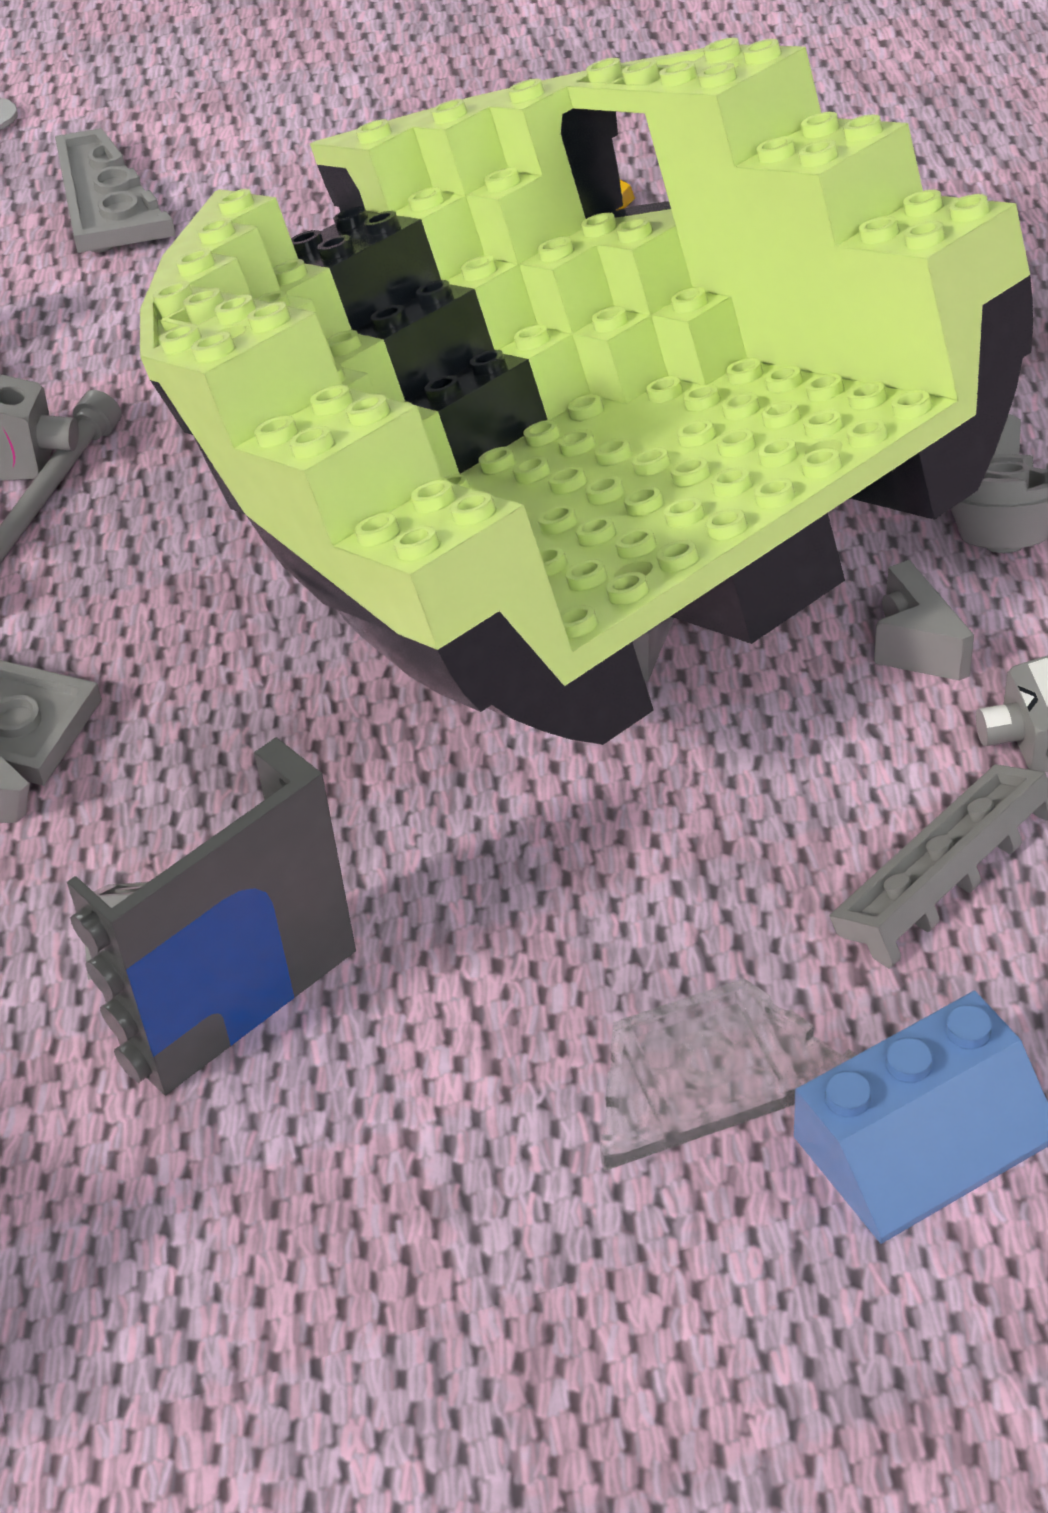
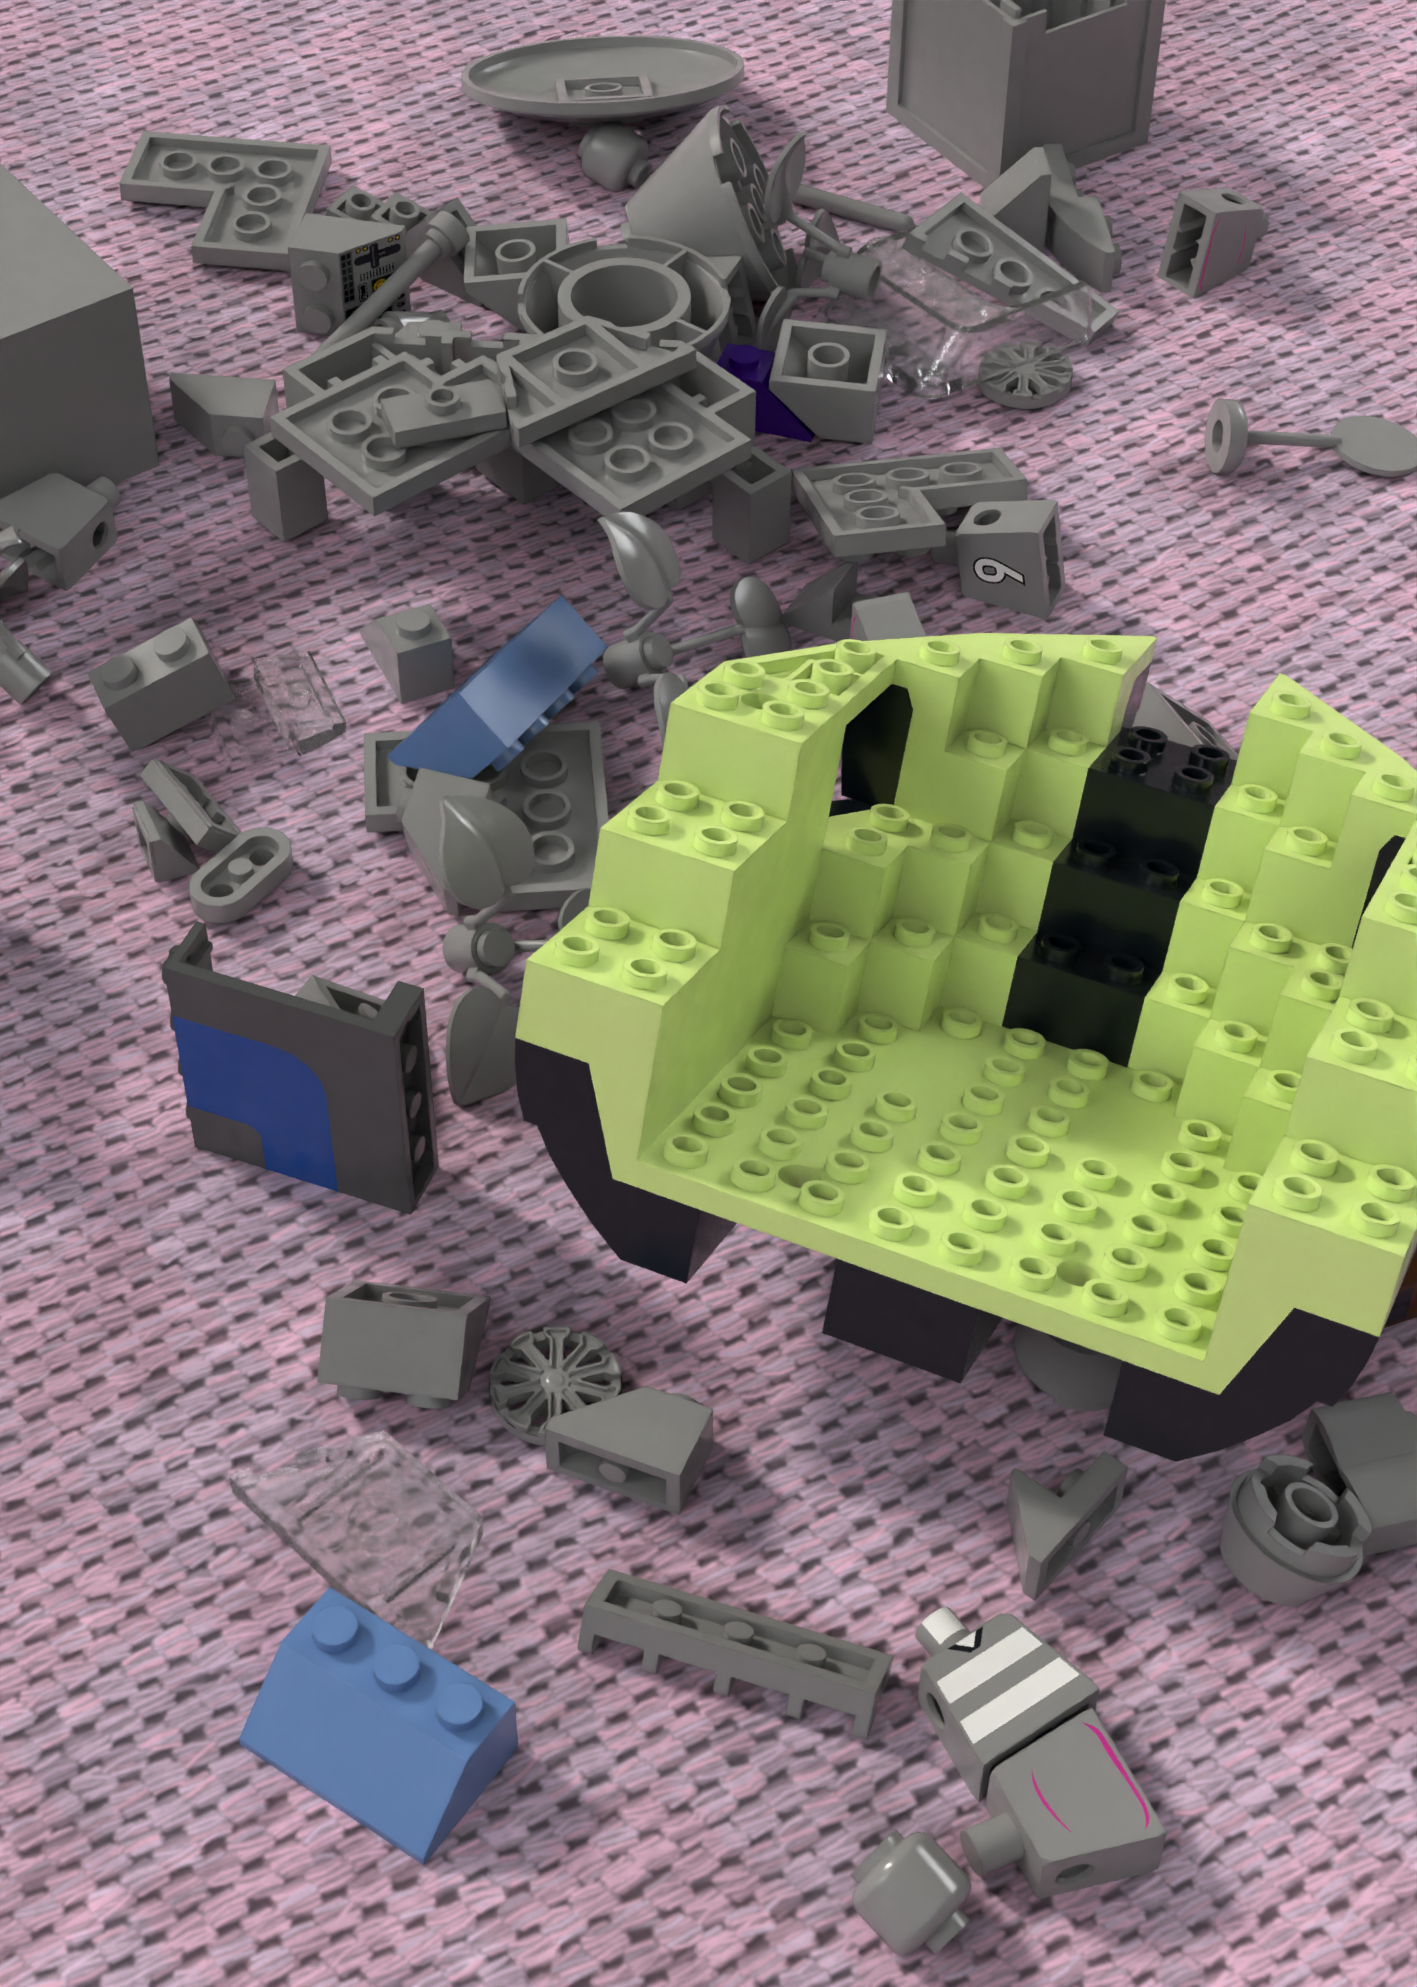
camera: 60 degrees right, 0 degrees up
(105, 196) = (1311, 593): light grey wing -> none
(106, 787) = (480, 857): none -> light grey plant
(518, 980) = (401, 1342): none -> light grey slope
(617, 897) = (551, 1384): none -> light grey wheel
(725, 851) = (635, 1445): none -> light grey slope

